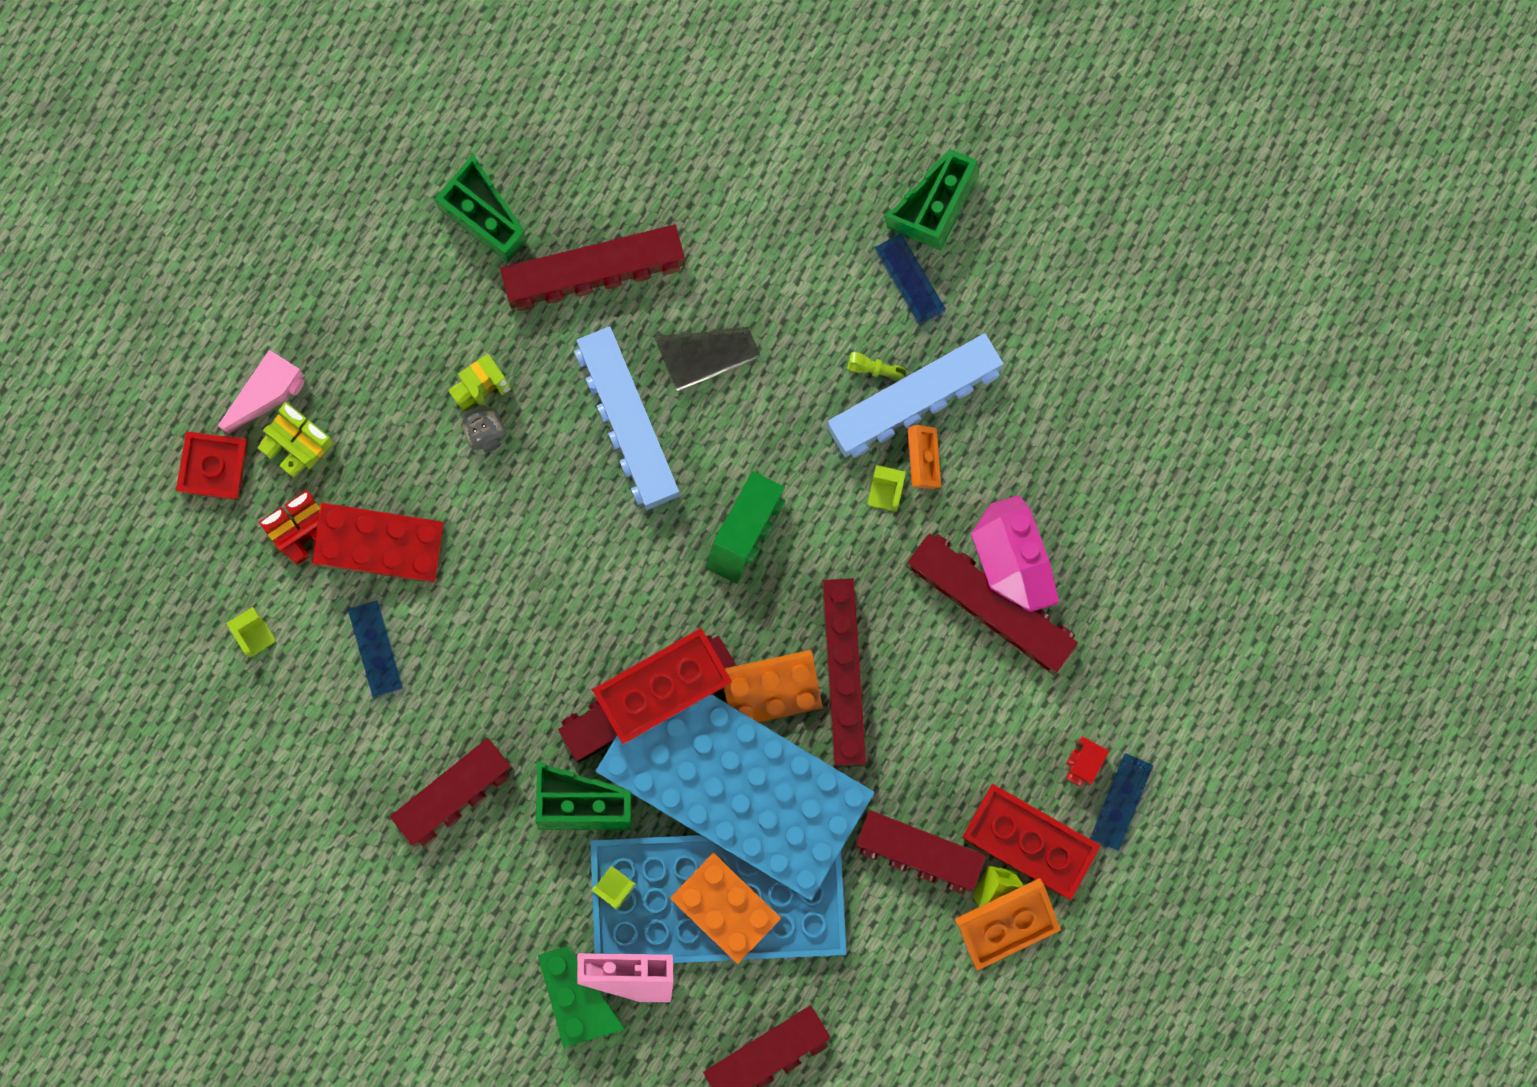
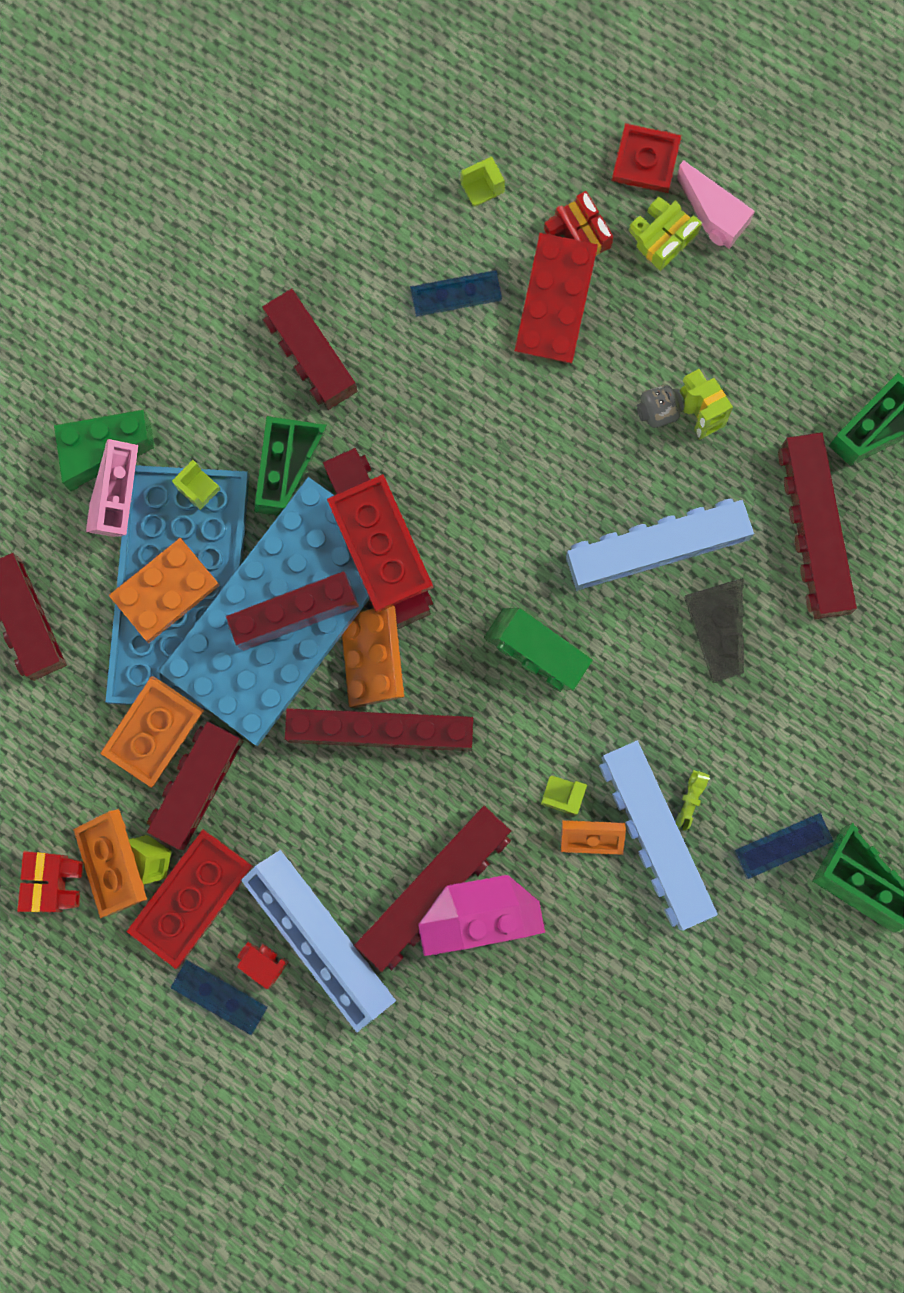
camera: 105 degrees right, 0 degrees up
(740, 764) = (292, 611): none -> dark red brick
(871, 900) = (152, 731): none -> orange plate
(1020, 989) = (50, 896): none -> red hips
(1055, 708) = (318, 940): none -> light blue brick

